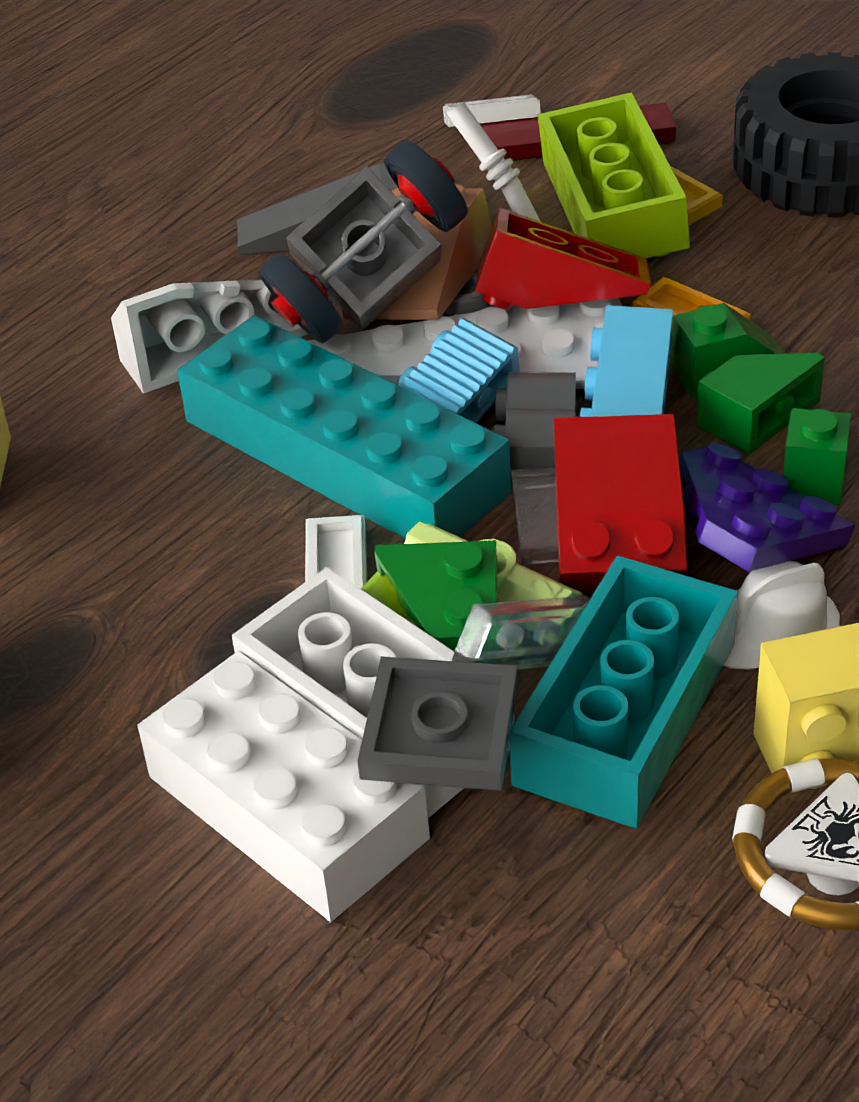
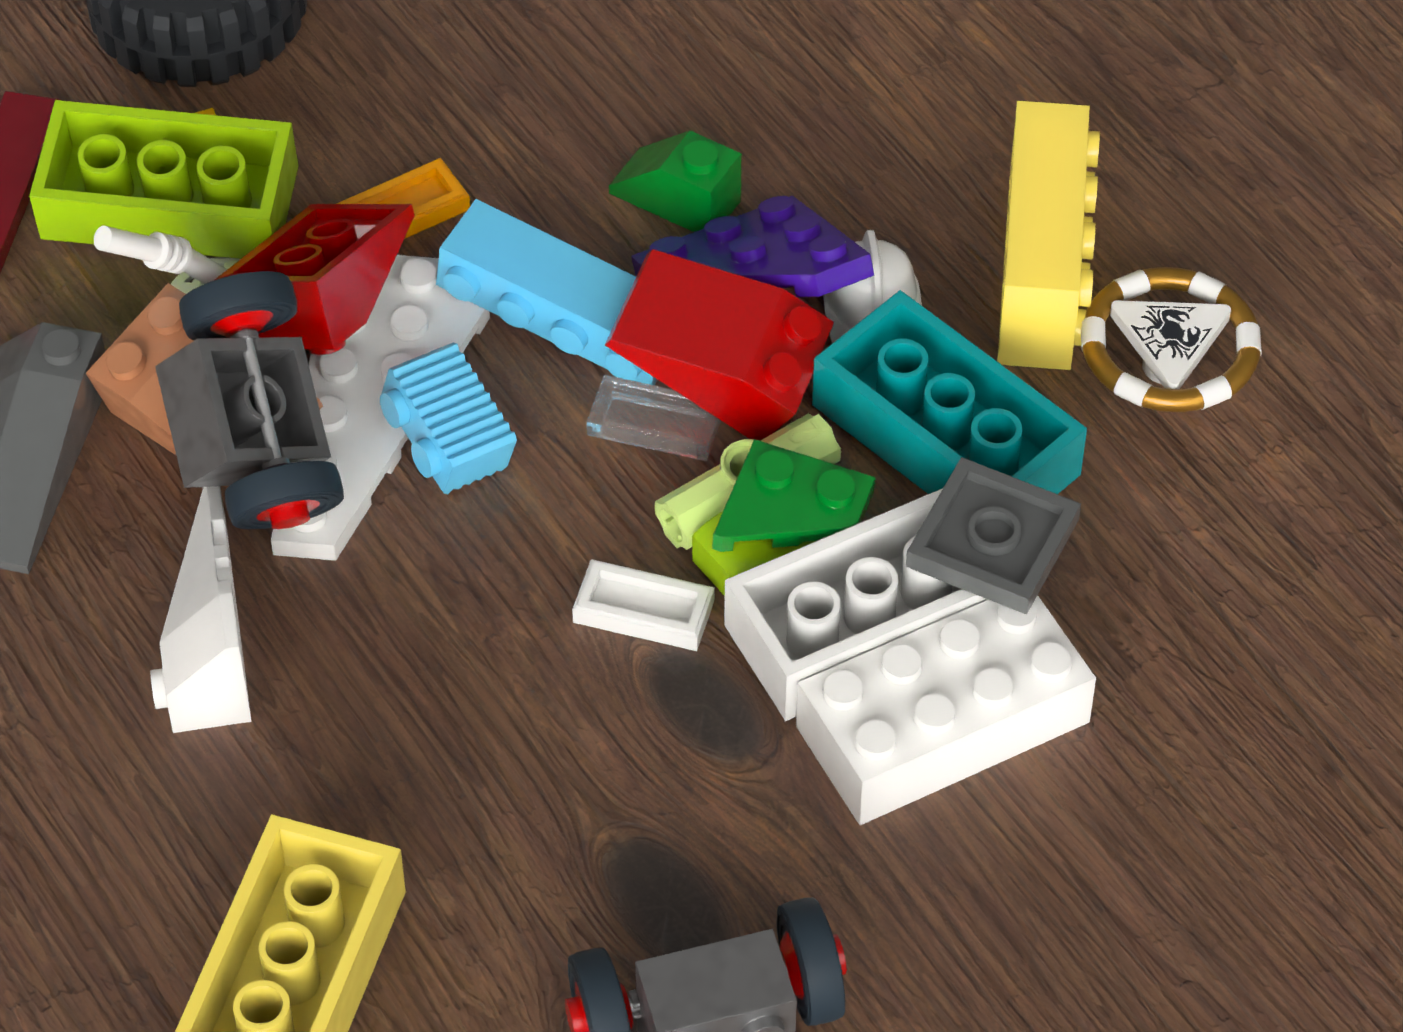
camera: 75 degrees left, 10 degrees up
(345, 430) = (459, 540): teal brick -> none
(518, 631) = (882, 452): clear tile -> none
(529, 414) = (538, 374): dark grey brick -> none
(711, 337) = (501, 183): green slope -> none
(754, 394) = (586, 197): green slope -> none

